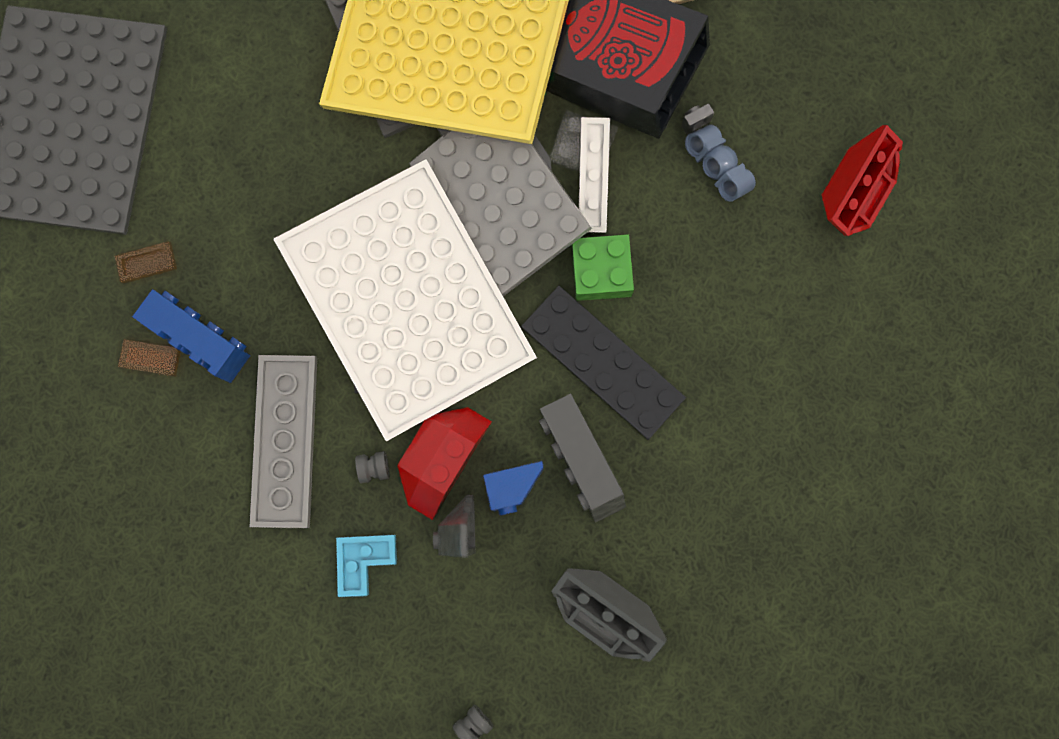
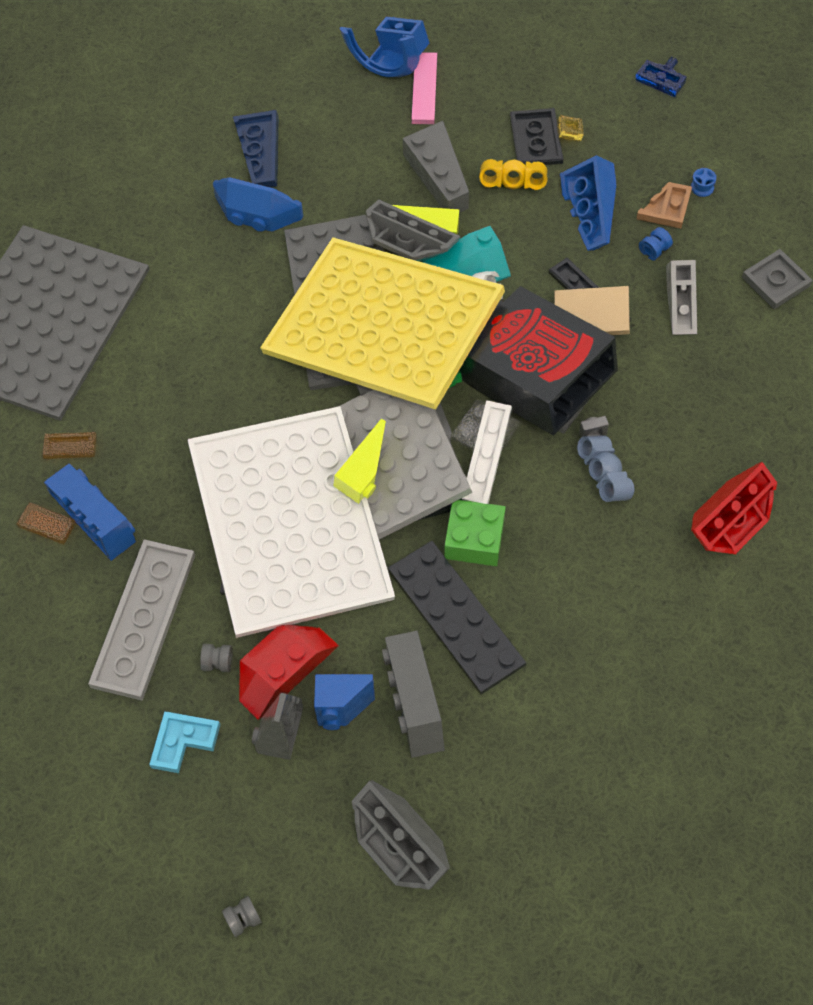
camera: 10 degrees right, 20 degrees down
(470, 226) = (358, 473): none -> neon yellow slope

